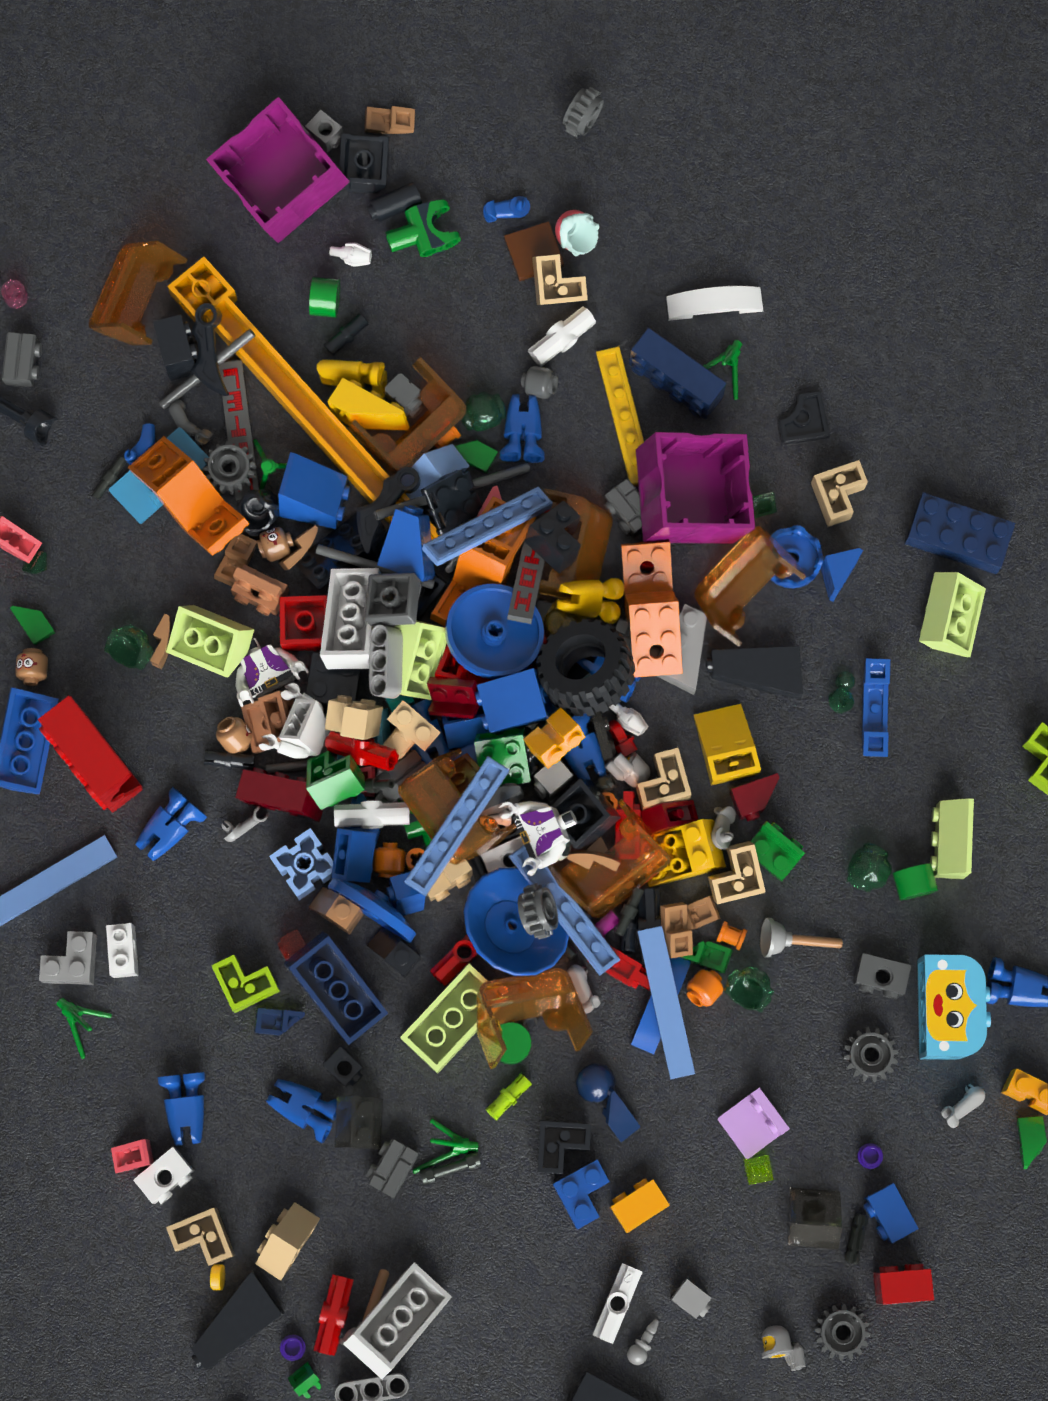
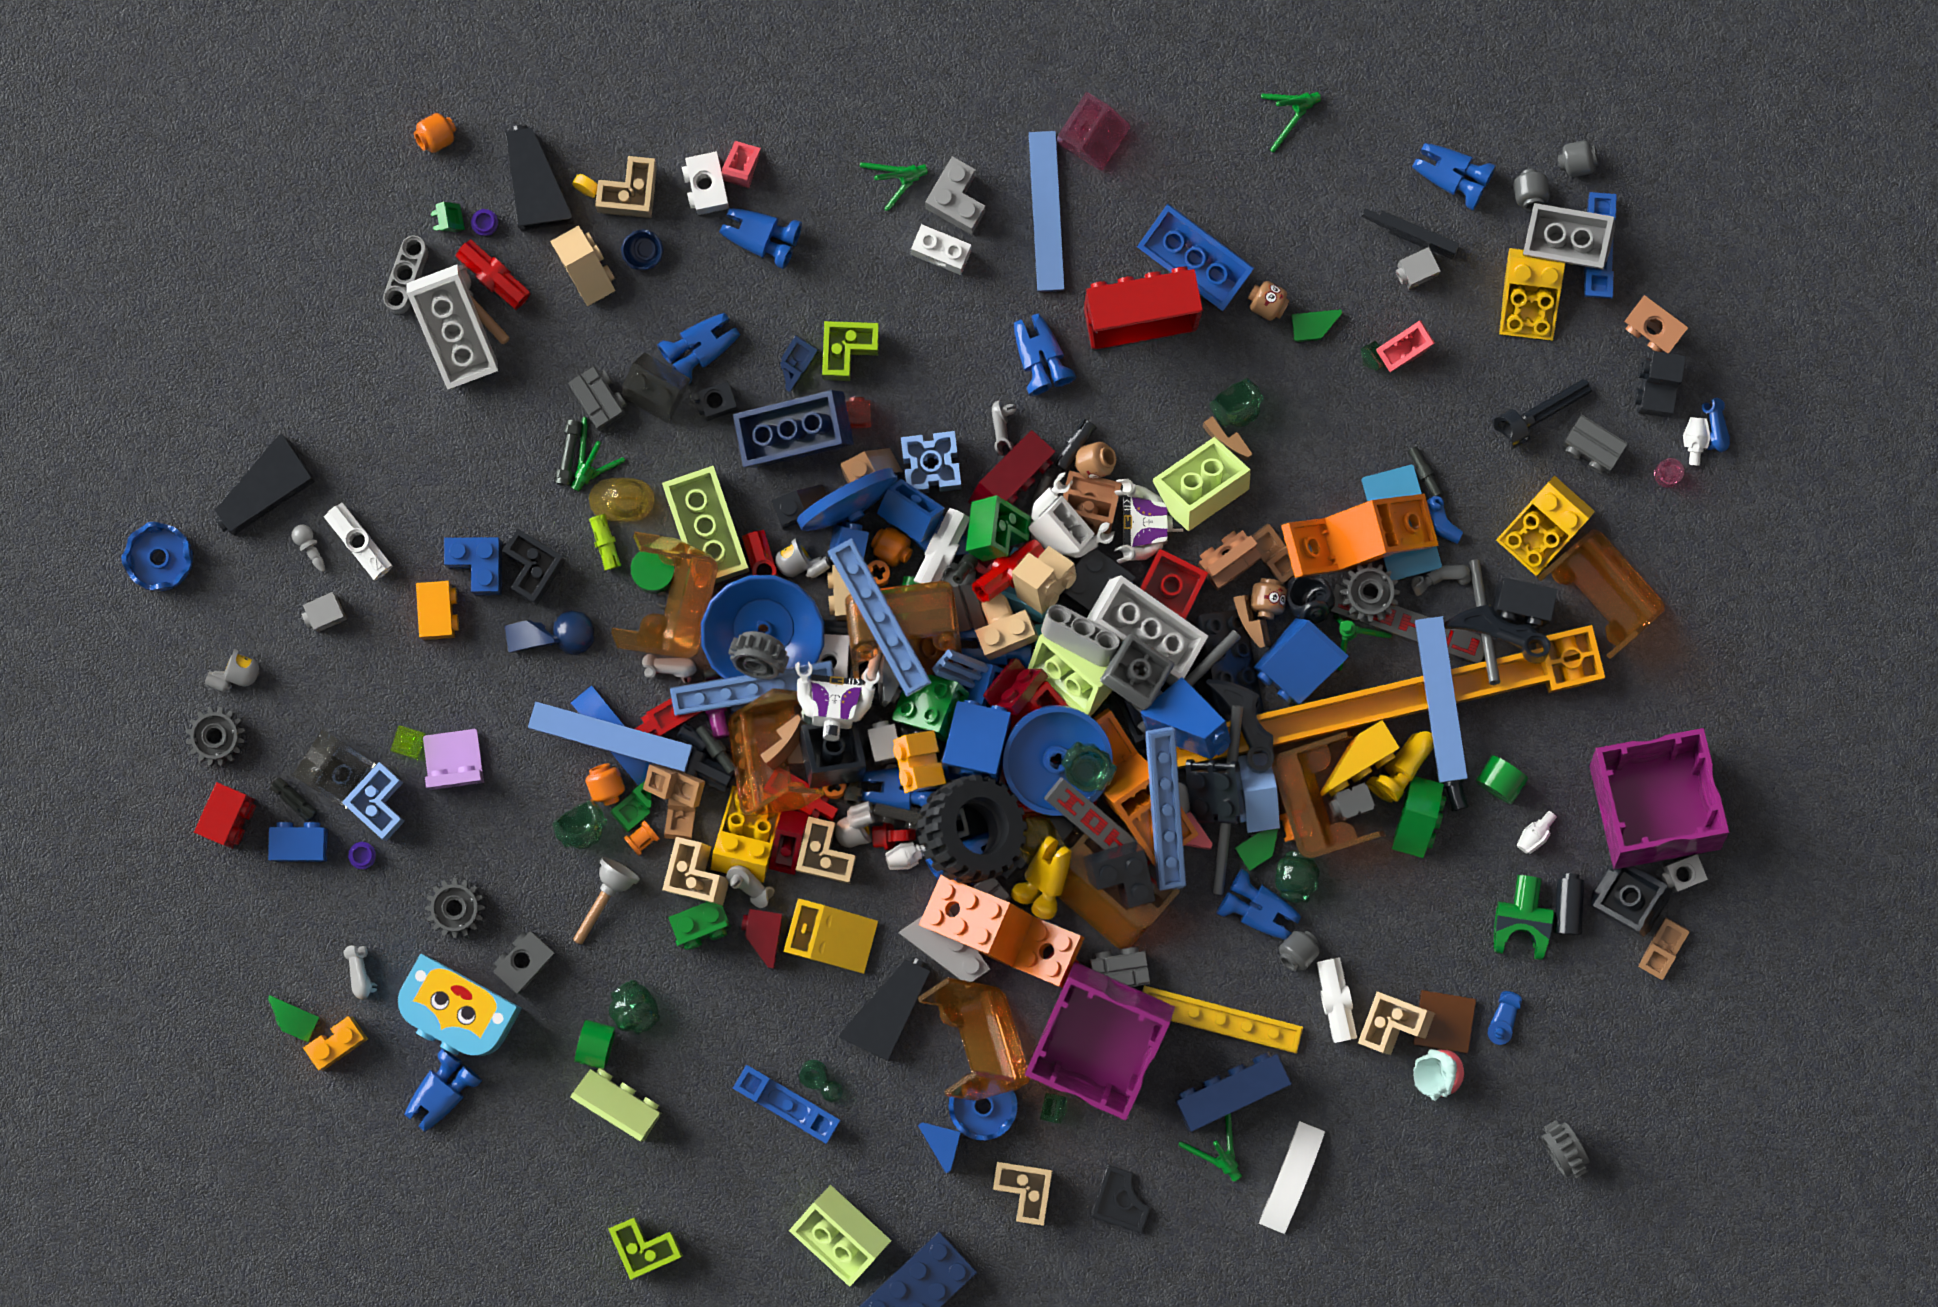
camera: 120 degrees right, 5 degrees up
(104, 364) = (1545, 525): none -> yellow slope
(248, 1198) = (642, 249): none -> dark blue hair
(286, 368) = (1441, 699): none -> medium blue tile
(387, 342) = (1419, 817): none -> green brick
(441, 932) = (796, 560): none -> light grey piece
(465, 1103) = (622, 499): none -> clear yellow piece
(466, 748) = (957, 672): none -> medium blue tile
(488, 600) = (1088, 767): none -> clear green hair
(825, 1172) = (369, 800): none -> light blue brick

